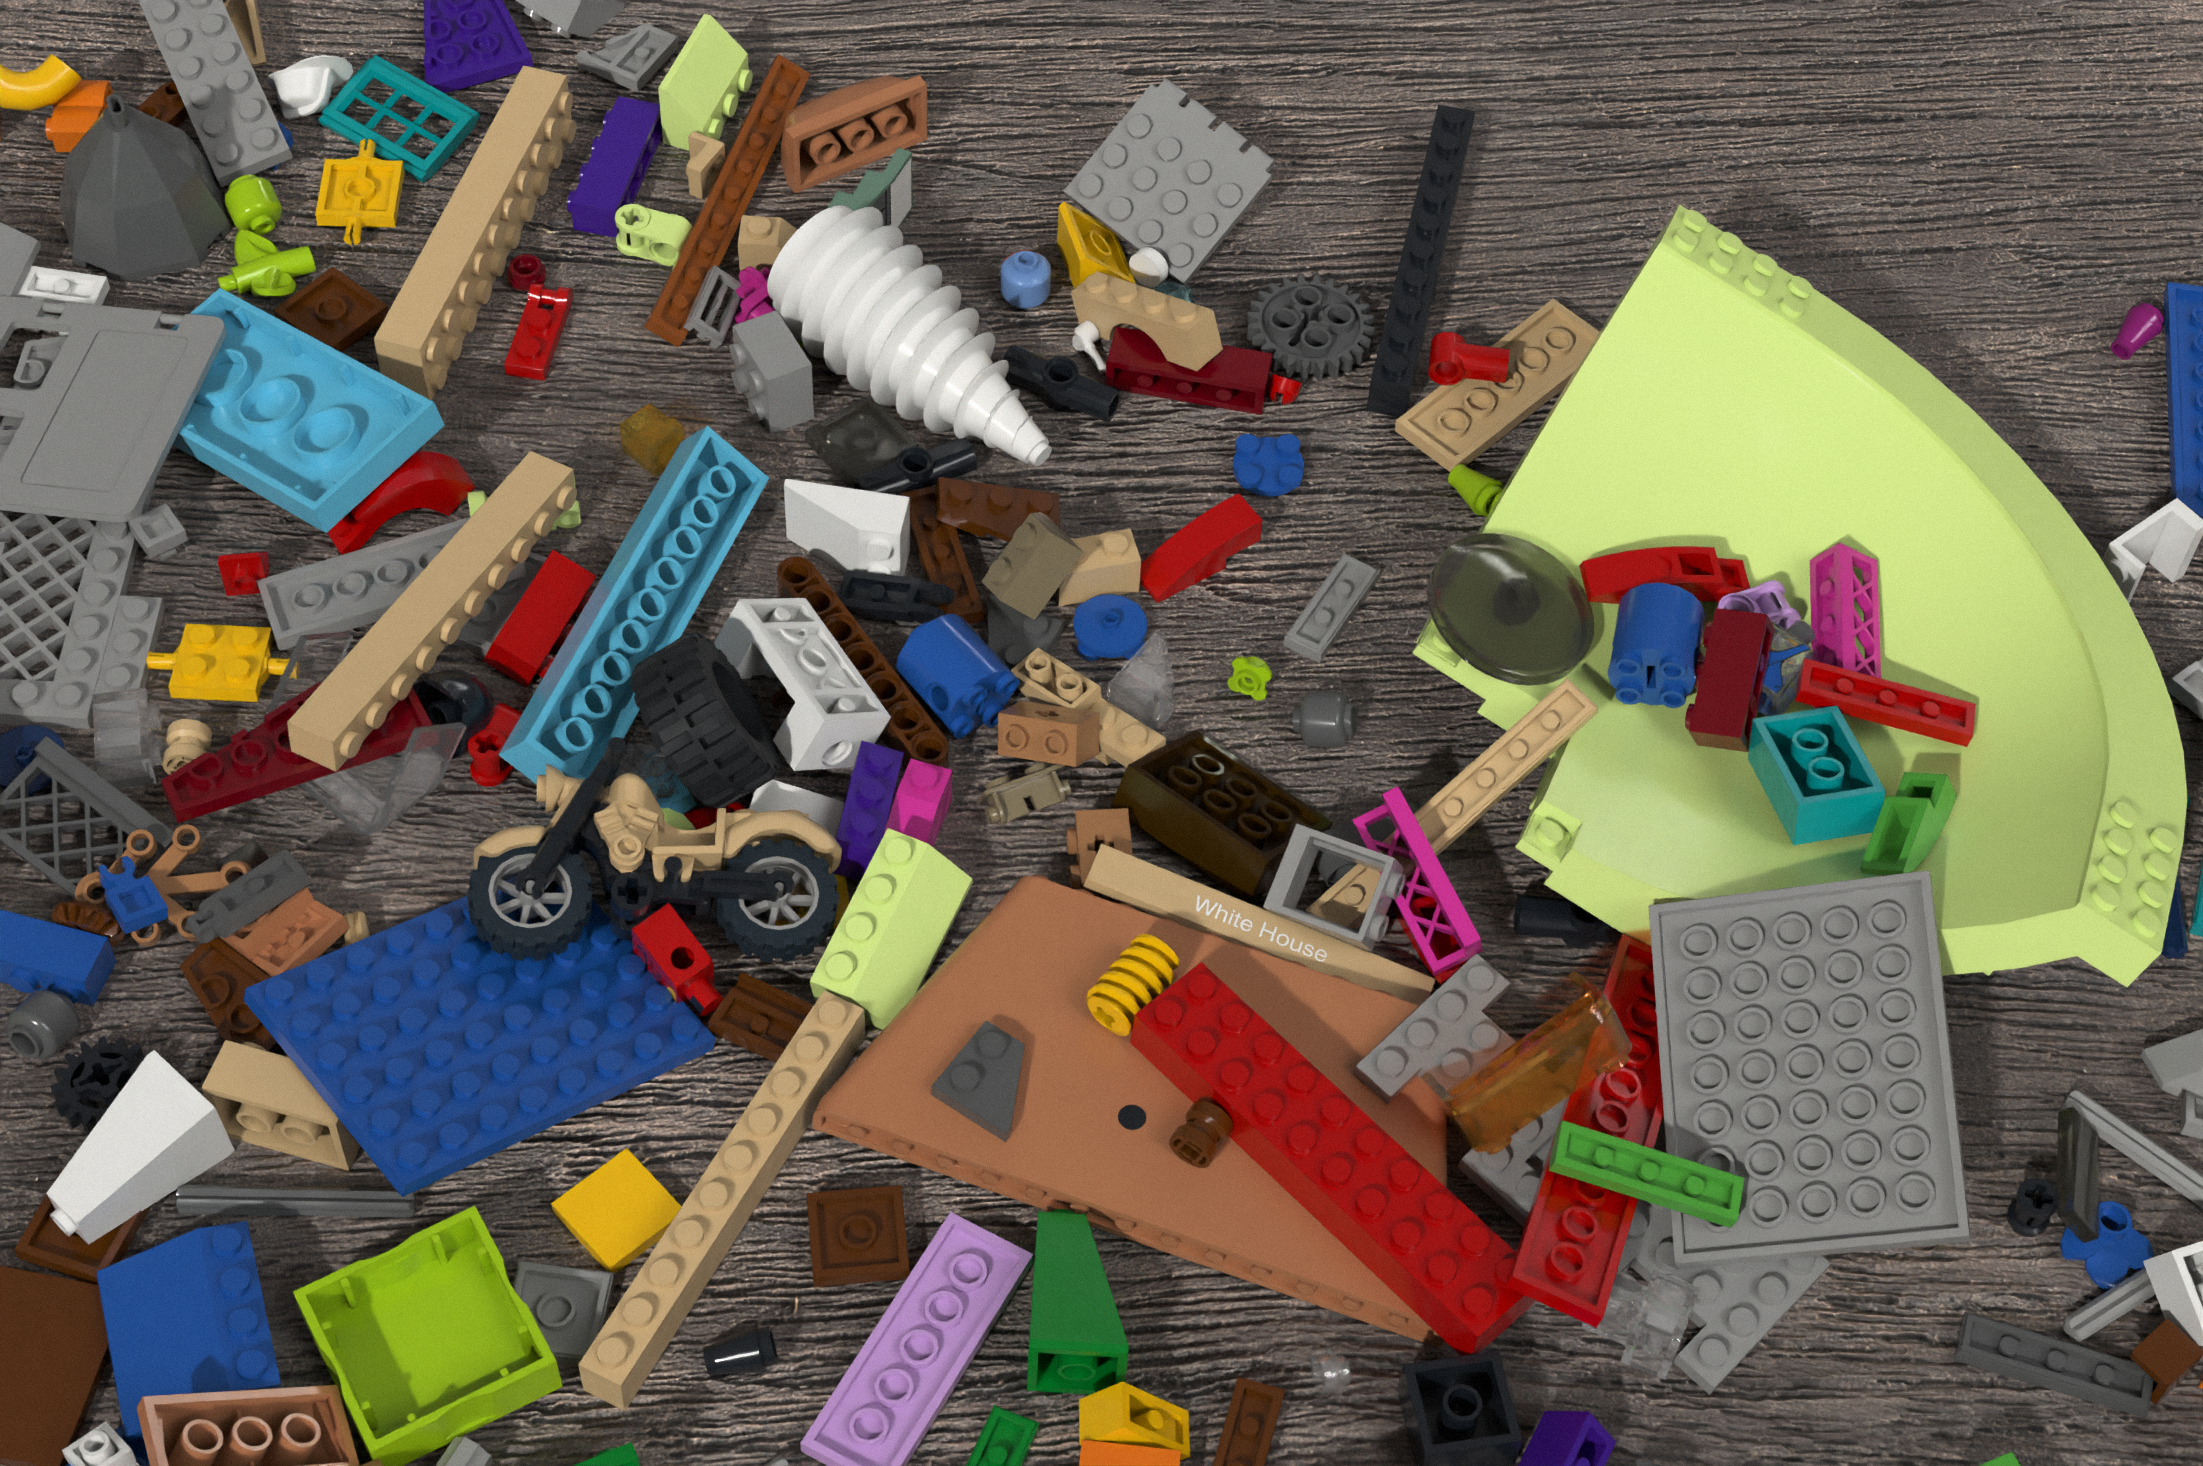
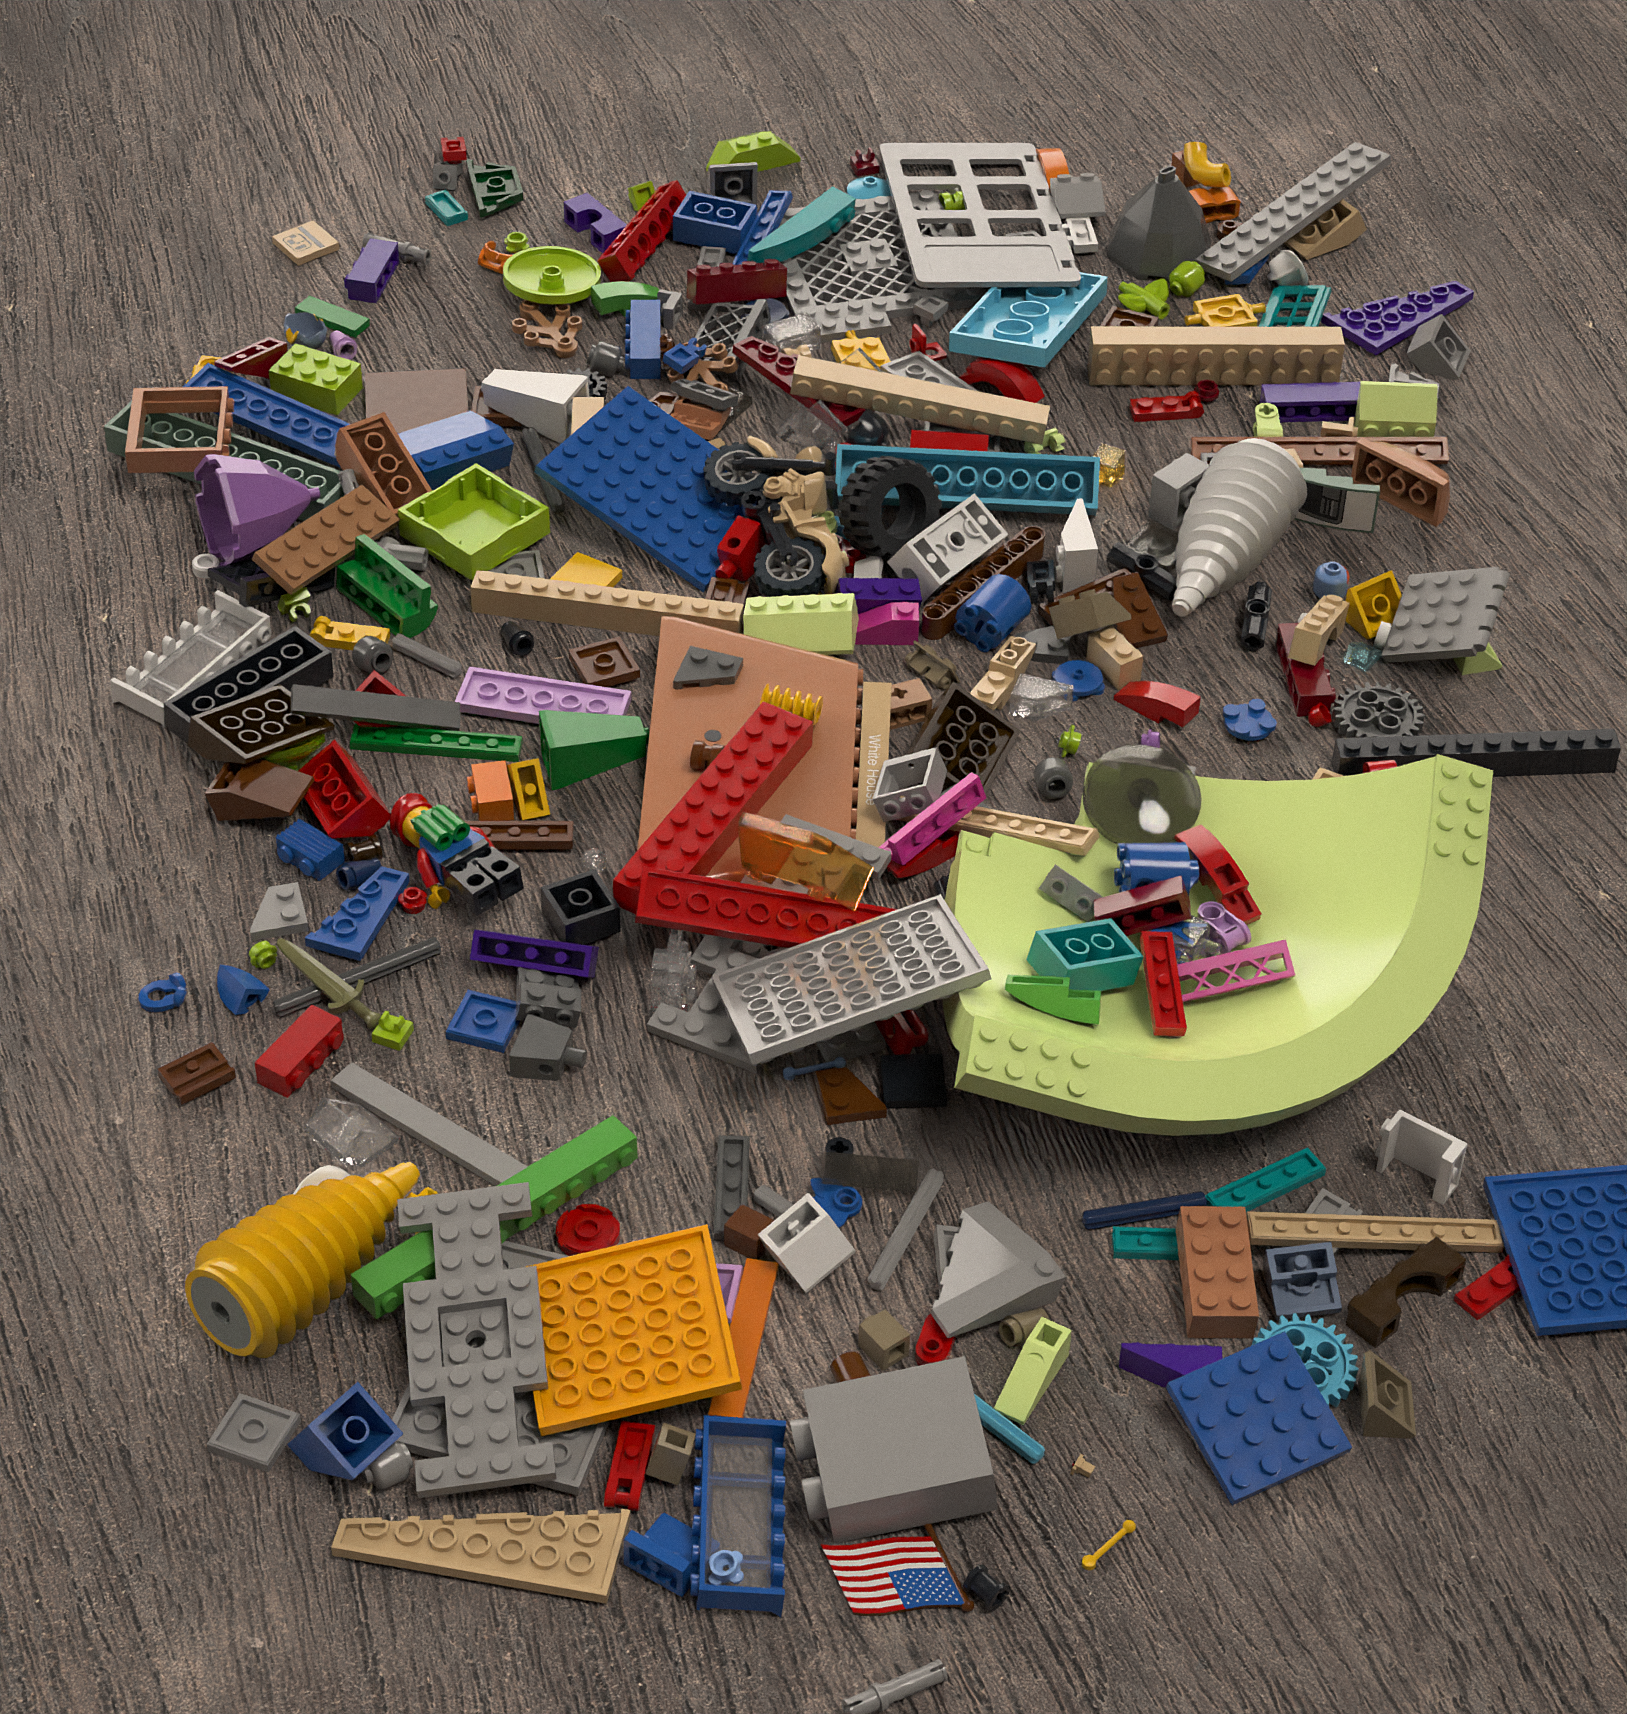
camera: 75 degrees right, 10 degrees down
(1048, 733) = (969, 655): medium nougat brick -> none
(1279, 585) = (1151, 739): none -> medium lavender plate
(1646, 1174) = (745, 924): bright green plate -> none
(1655, 754) = (1070, 892): none -> light grey hinge

